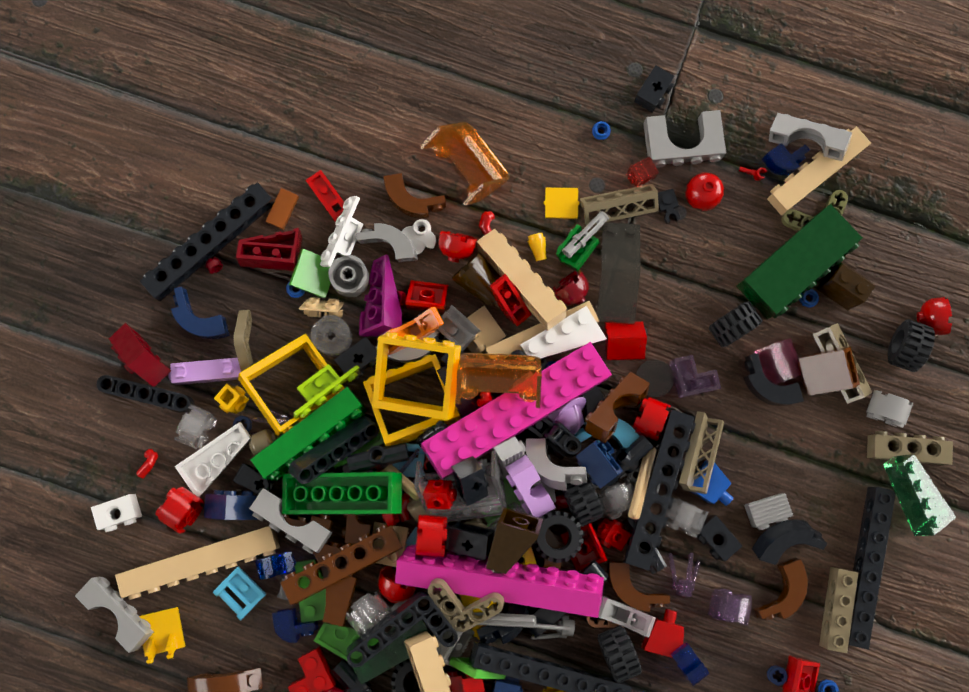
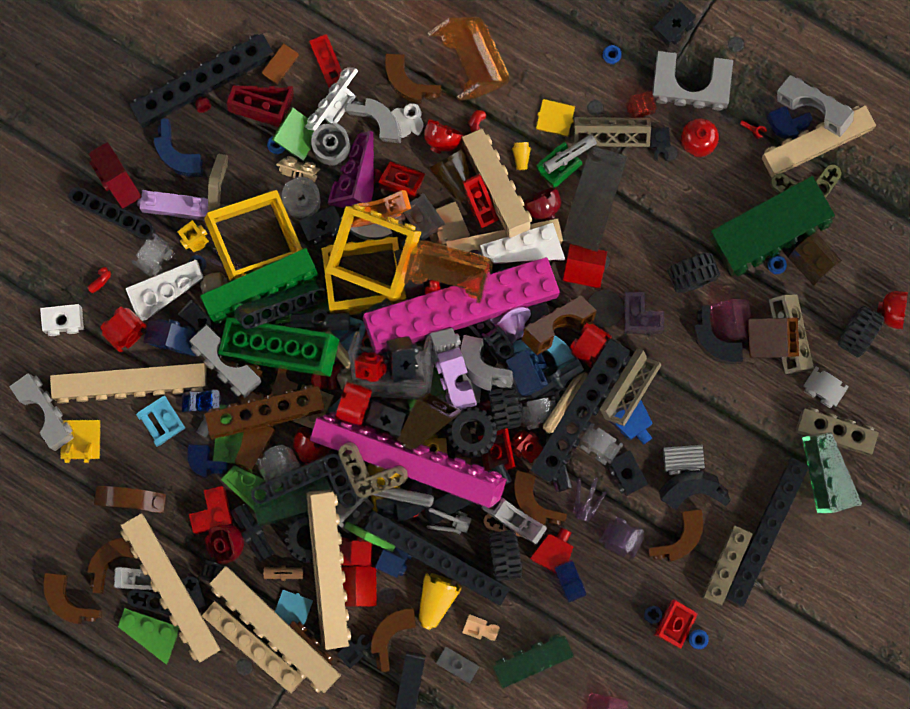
camera: 20 degrees right, 0 degrees up
(320, 385) = (280, 242): lime bracket -> none

